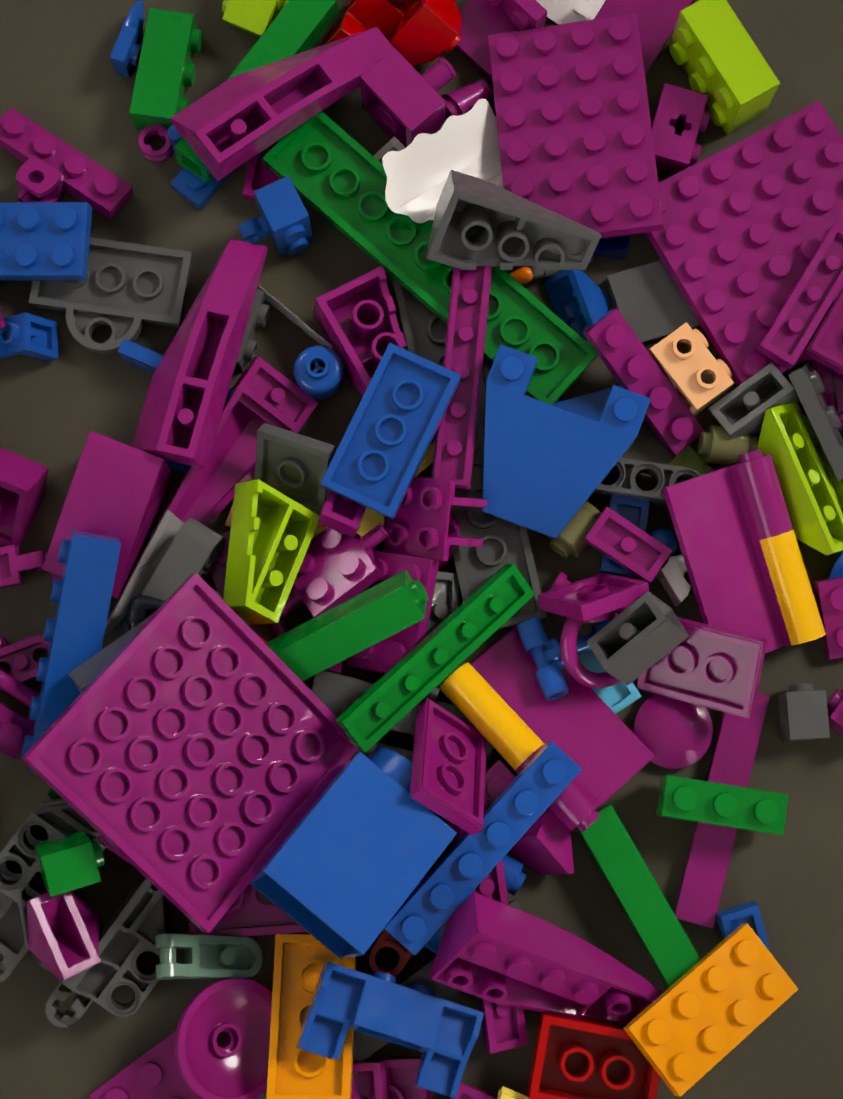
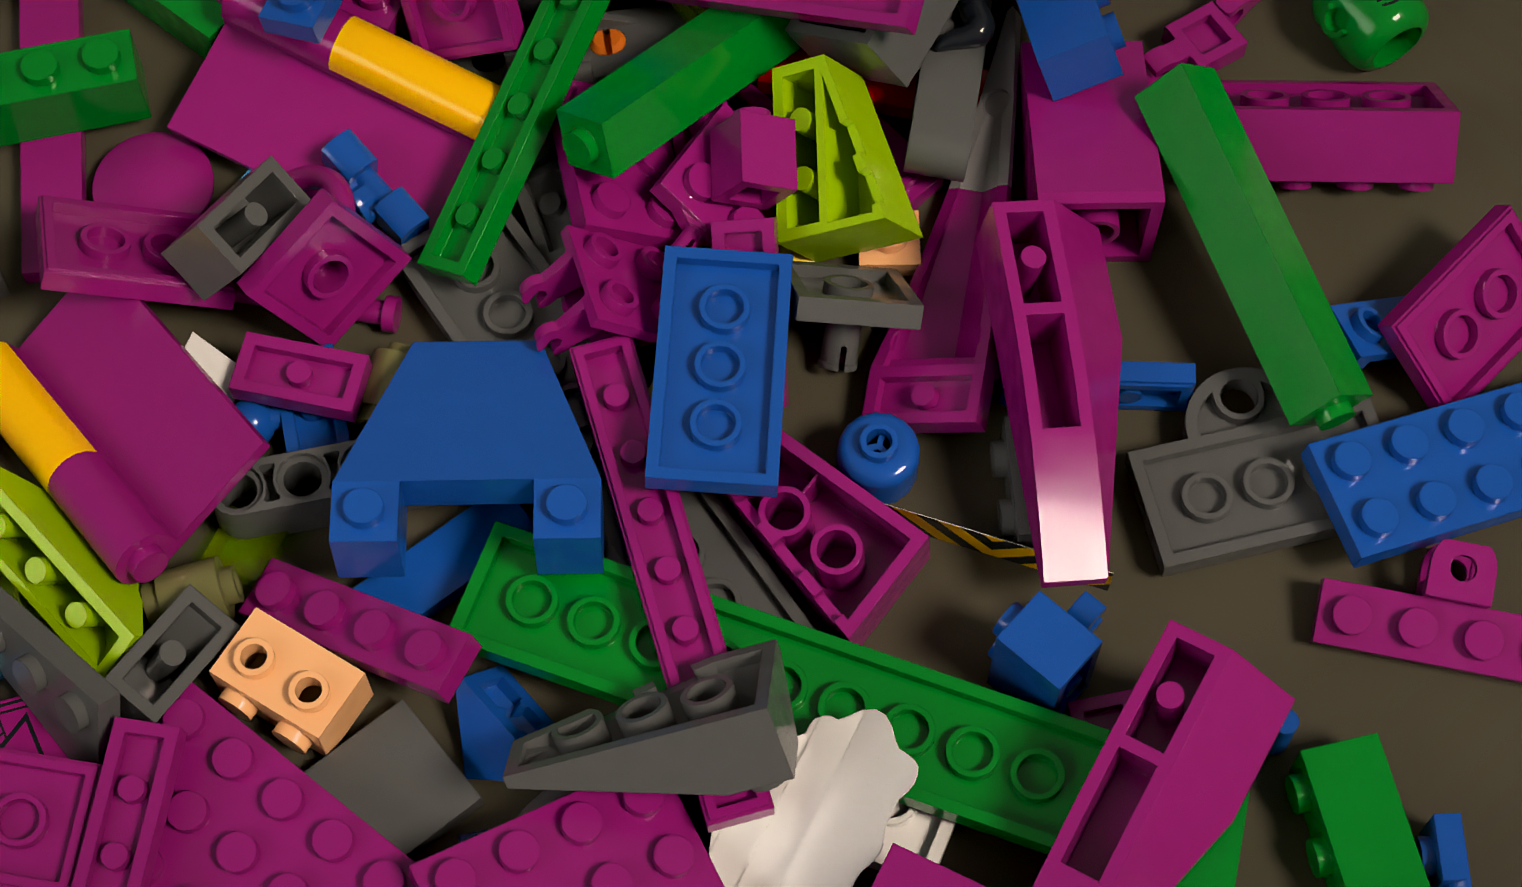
camera: 160 degrees right, 15 degrees down
(51, 397) = (1253, 247): none -> green brick
(150, 155) = (1319, 710): magenta bush -> none
(315, 561) = (753, 159): none -> magenta brick

